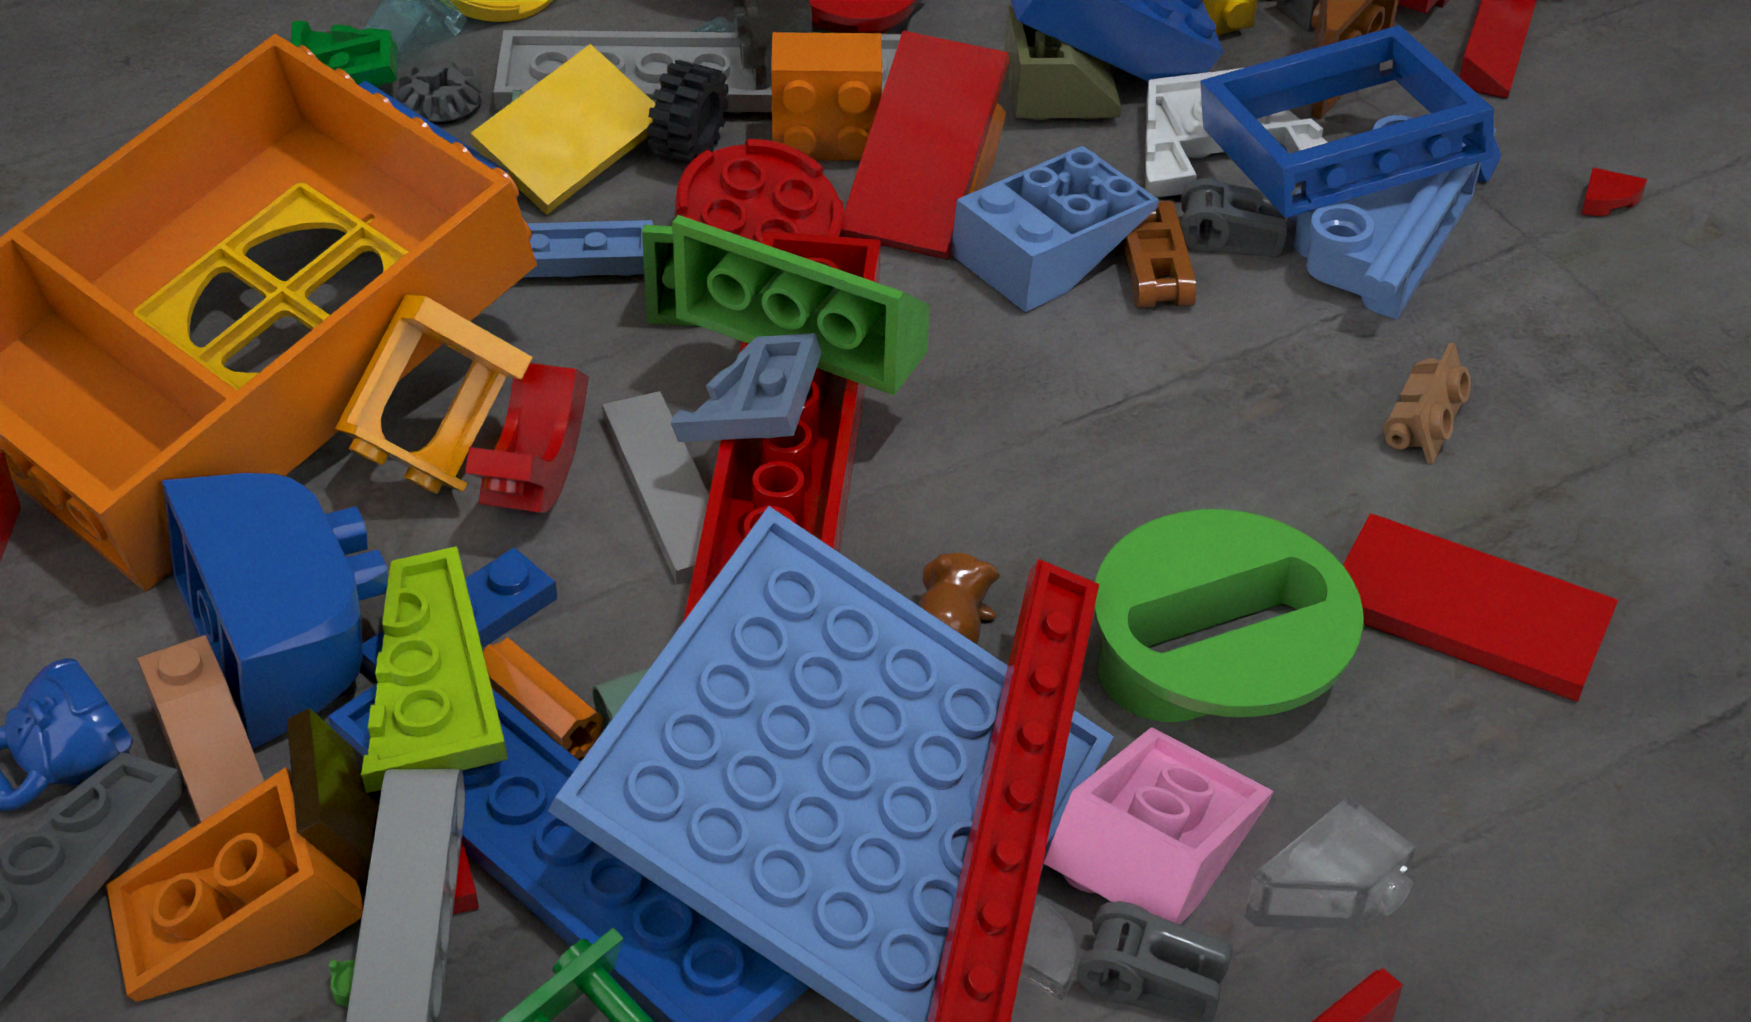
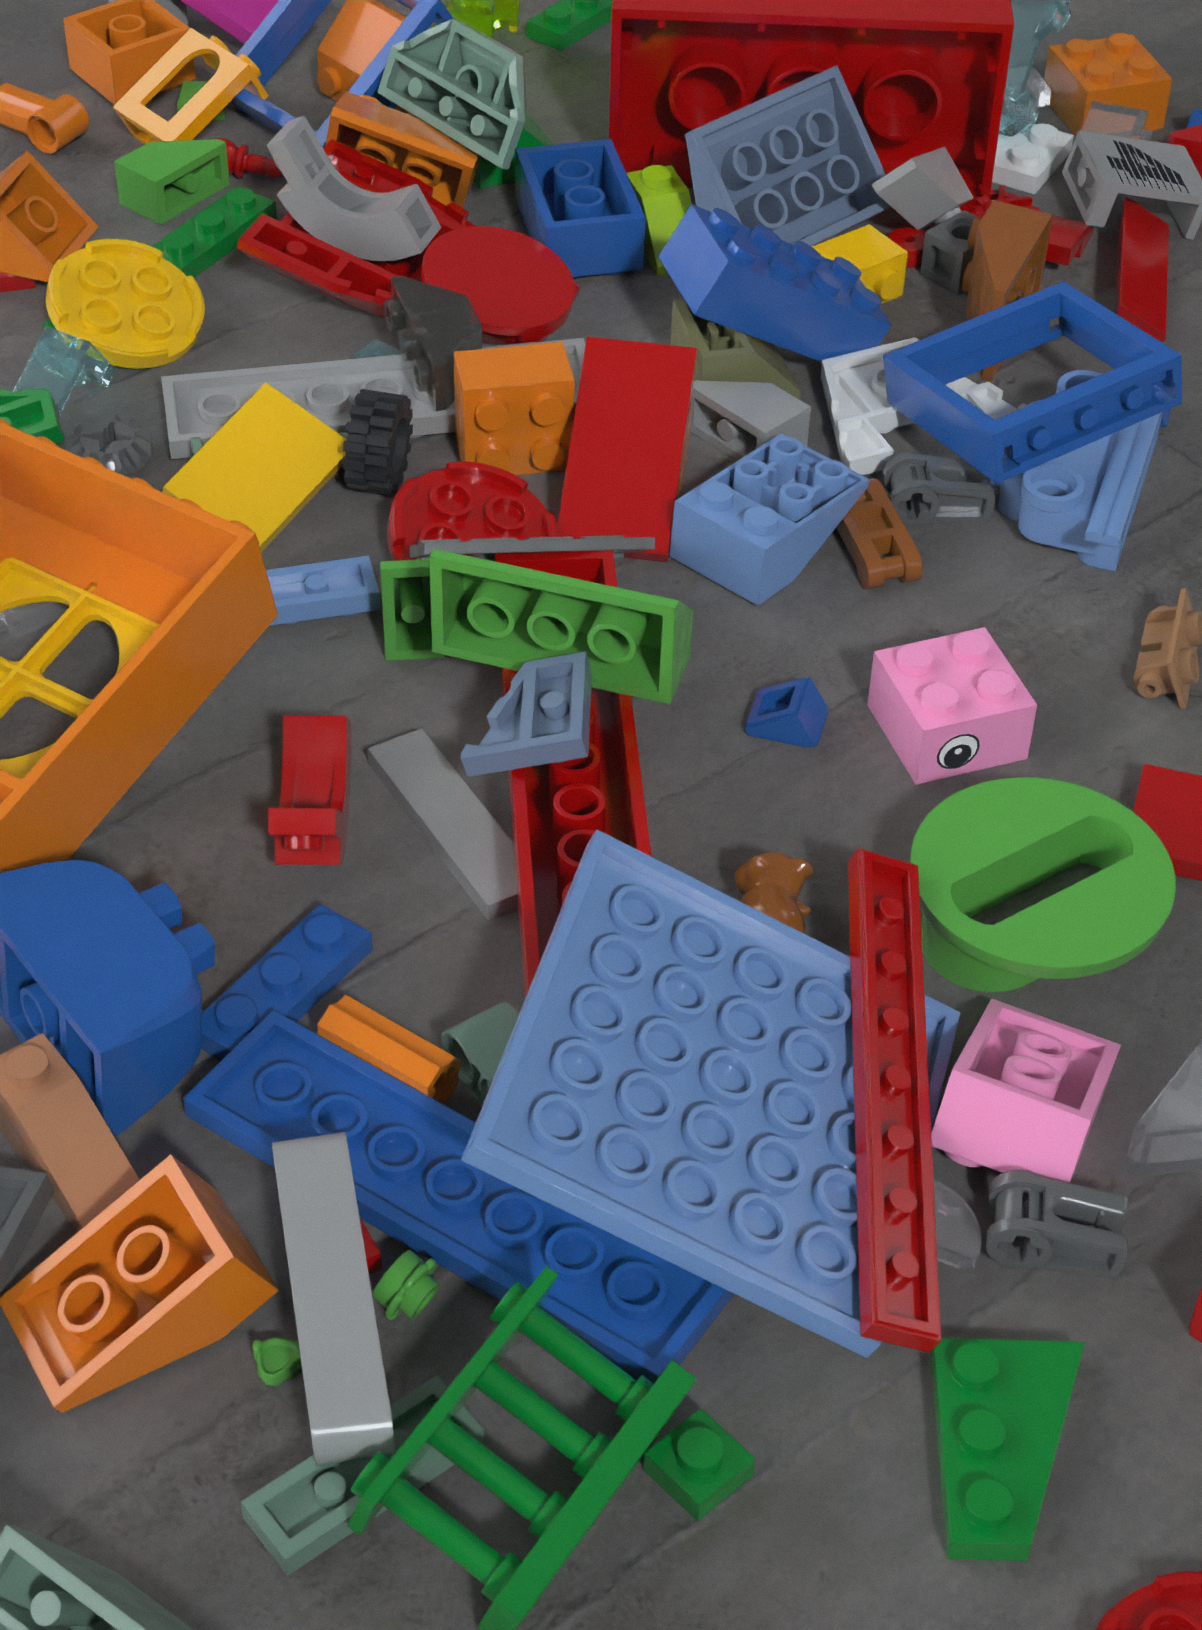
camera: 10 degrees left, 0 degrees up
(331, 795) = (228, 1181): dark brown tile -> none
(431, 675) = (284, 1043): lime wing -> none
(445, 453) = (259, 717): light orange panel -> none
(492, 928) = (407, 1286): none -> bright green plate
(755, 225) = (488, 547): none -> dark grey windscreen
(1025, 421) = (788, 713): none -> blue slope
(1056, 122) = (746, 415): none -> light grey slope
(1186, 431) = (951, 705): none -> bright pink brick

